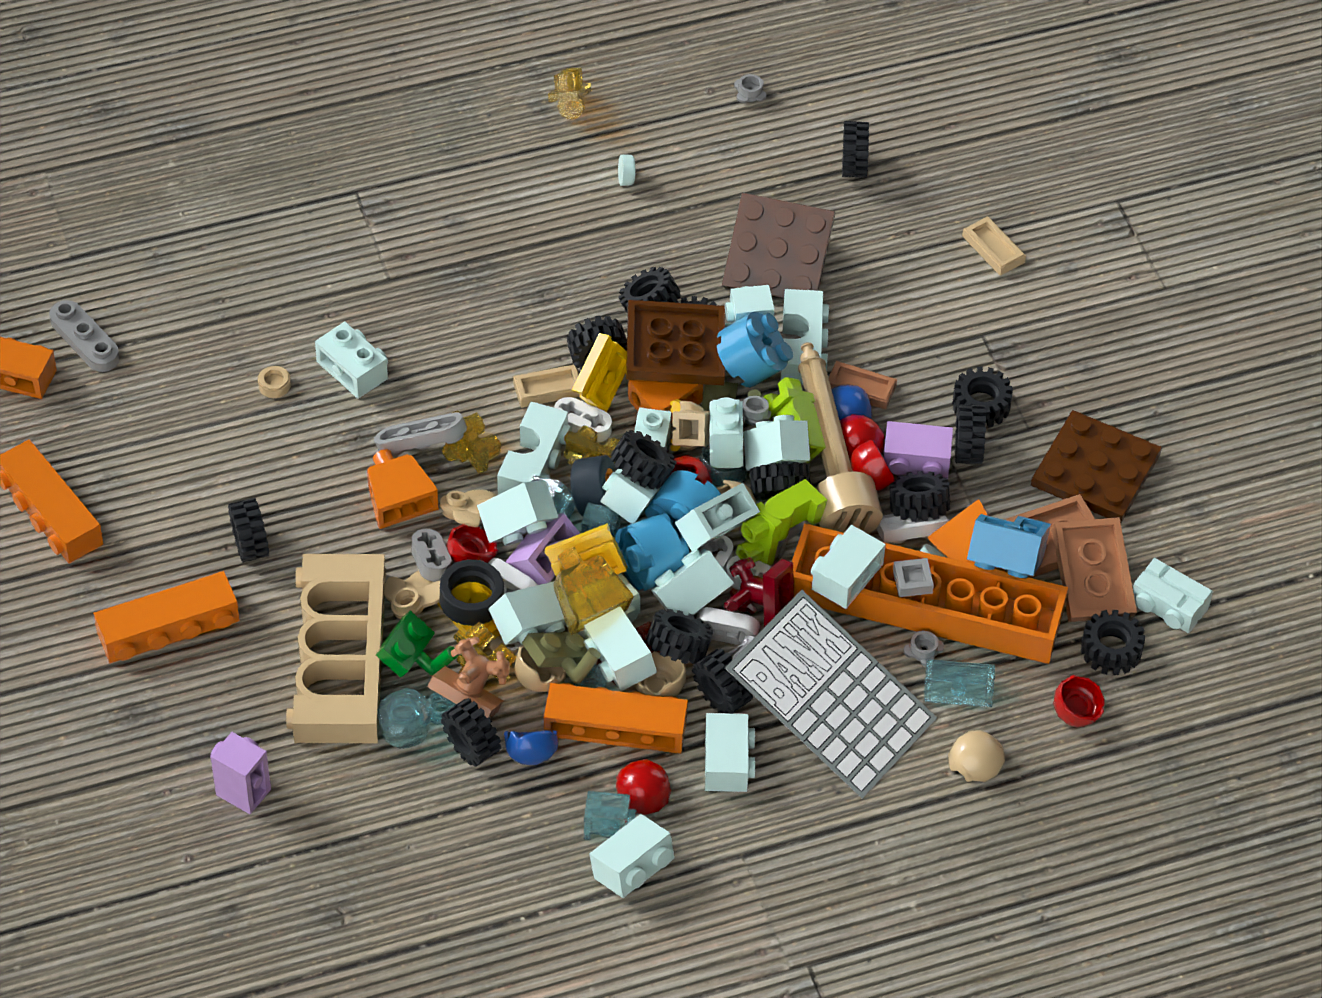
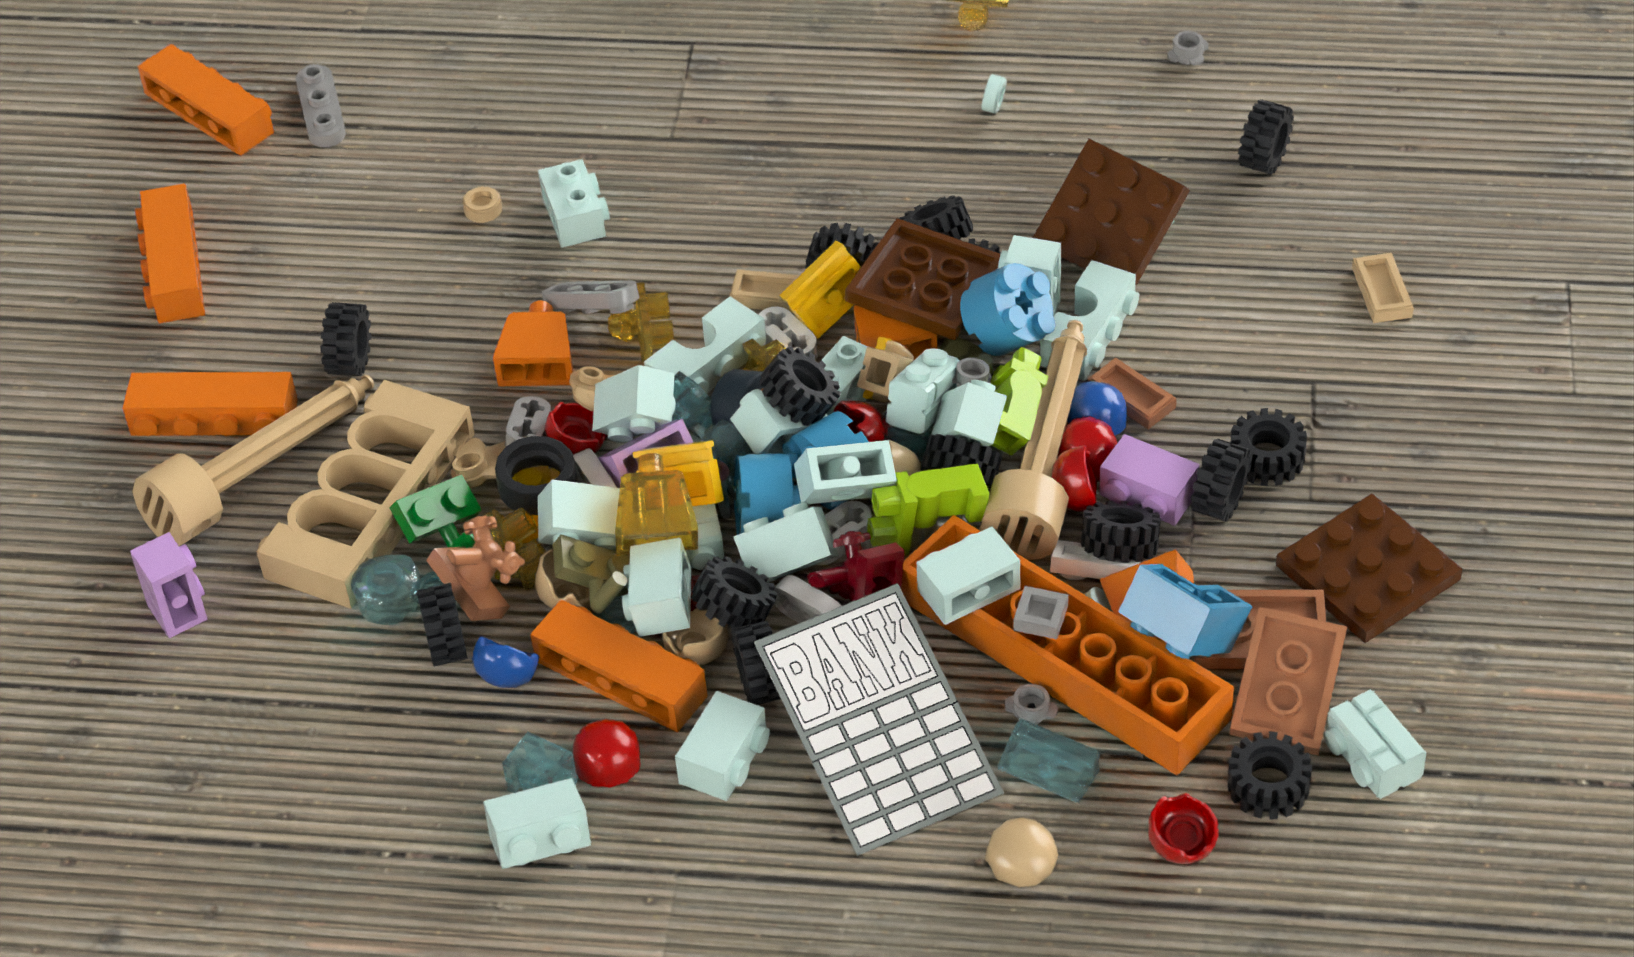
camera: 30 degrees right, 5 degrees down
(206, 695) = (185, 496): none -> tan piece

